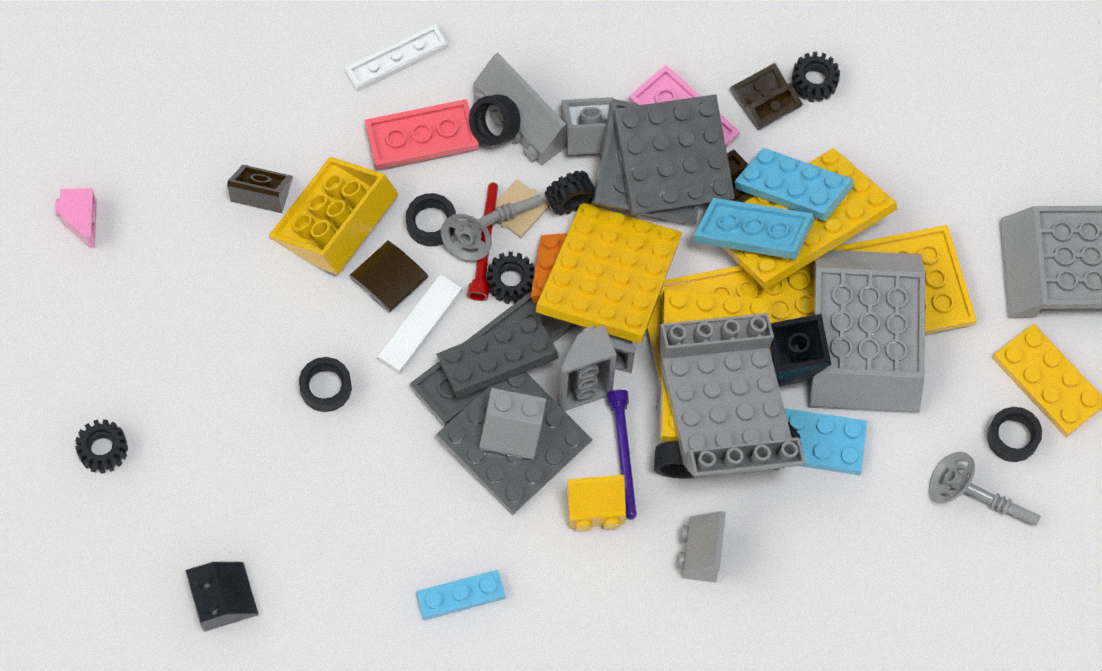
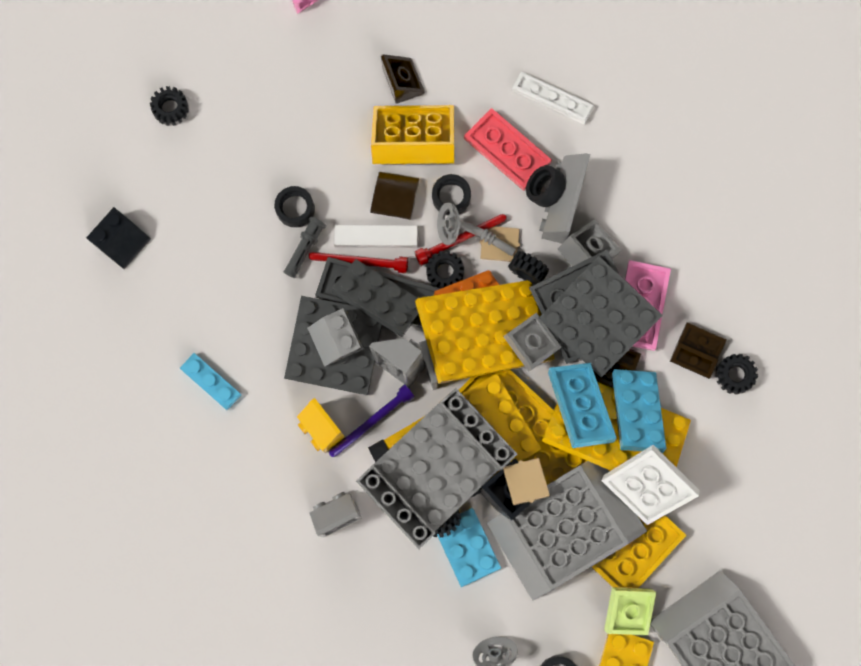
camera: 65 degrees right, 10 degrees up
(373, 393) = (309, 238): none -> dark grey pin
(471, 317) = (399, 264): none -> red piece
(653, 236) = (532, 342): none -> light grey tile
(800, 325) = (526, 481): none -> tan piece
(880, 214) = (650, 485): none -> white plate
(990, 322) = (630, 611): none -> yellowish green plate

